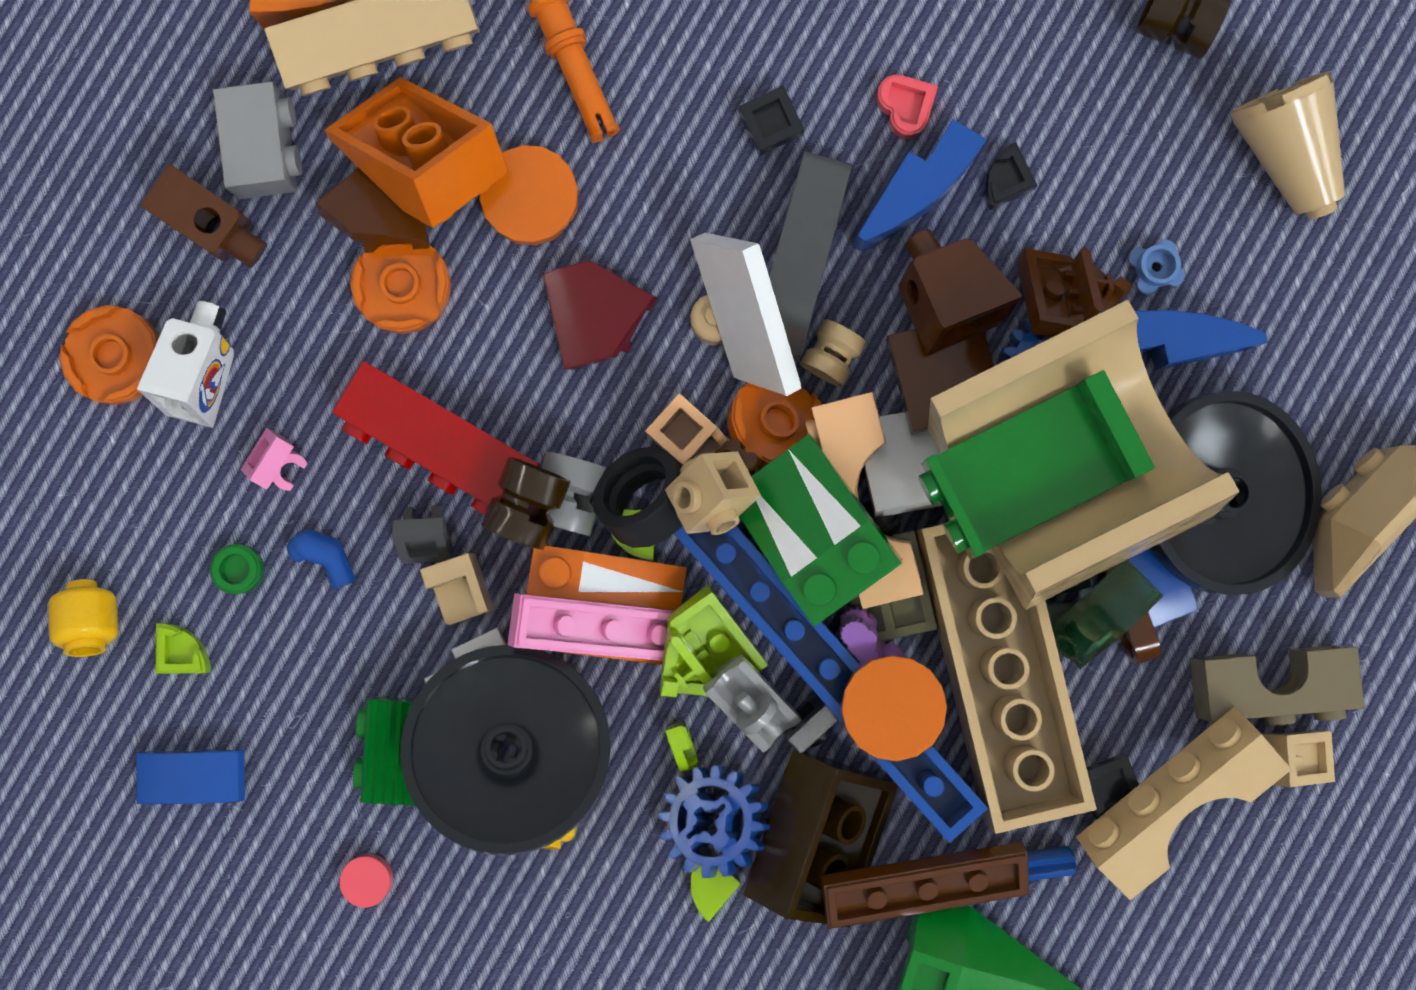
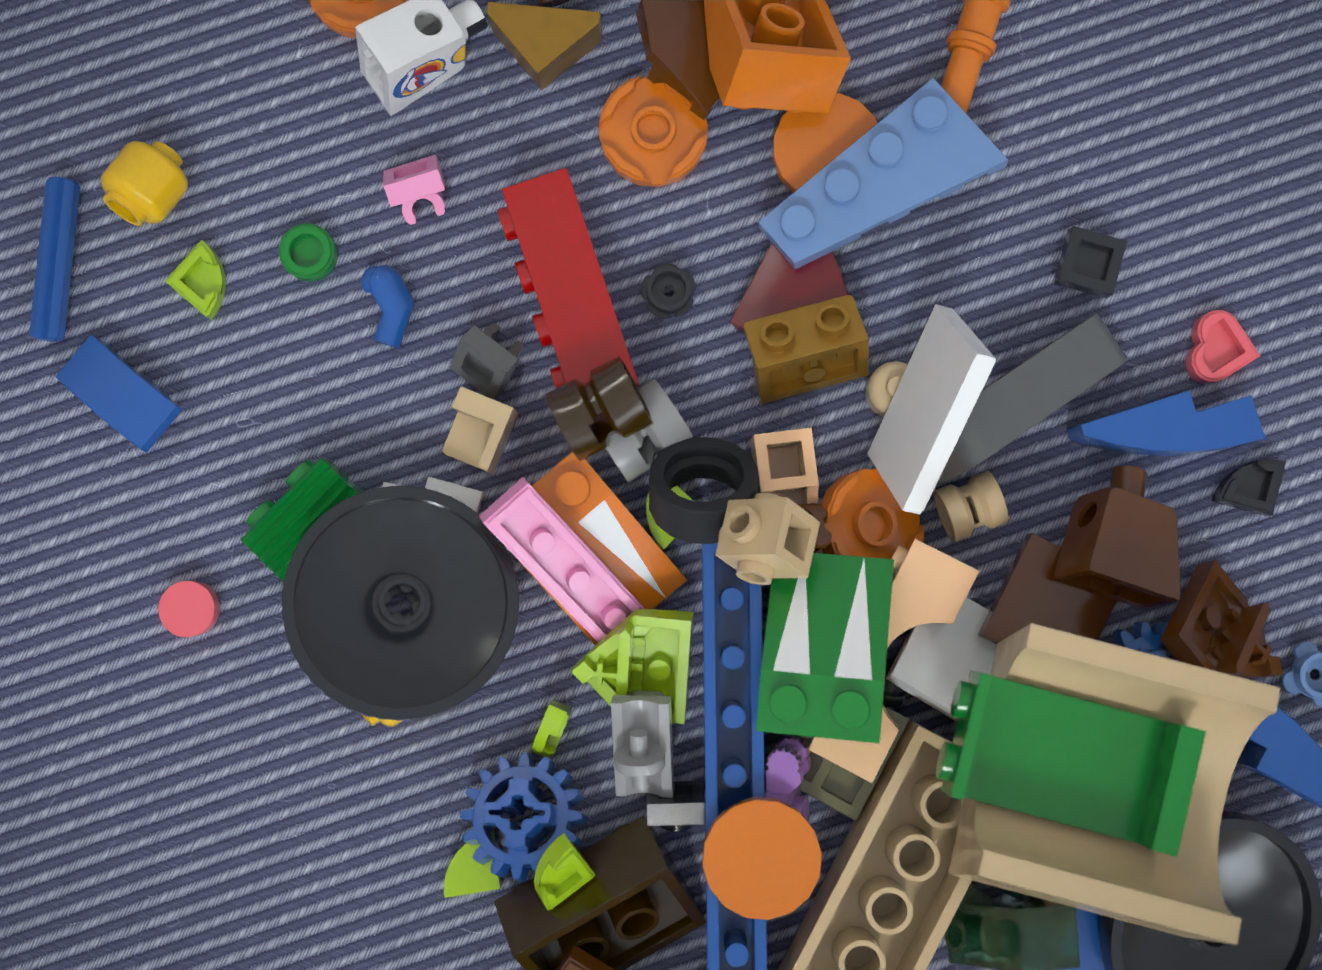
camera: 40 degrees right, 0 degrees up
(66, 724) = (55, 259): none -> blue axle
(273, 285) = (545, 38): none -> pearl gold slope
(493, 377) = (668, 276): none -> black plate
(585, 167) = (899, 164): none -> medium blue wing
(632, 341) = (808, 348): none -> pearl gold bracket
(769, 835) = (560, 872): none -> lime tile

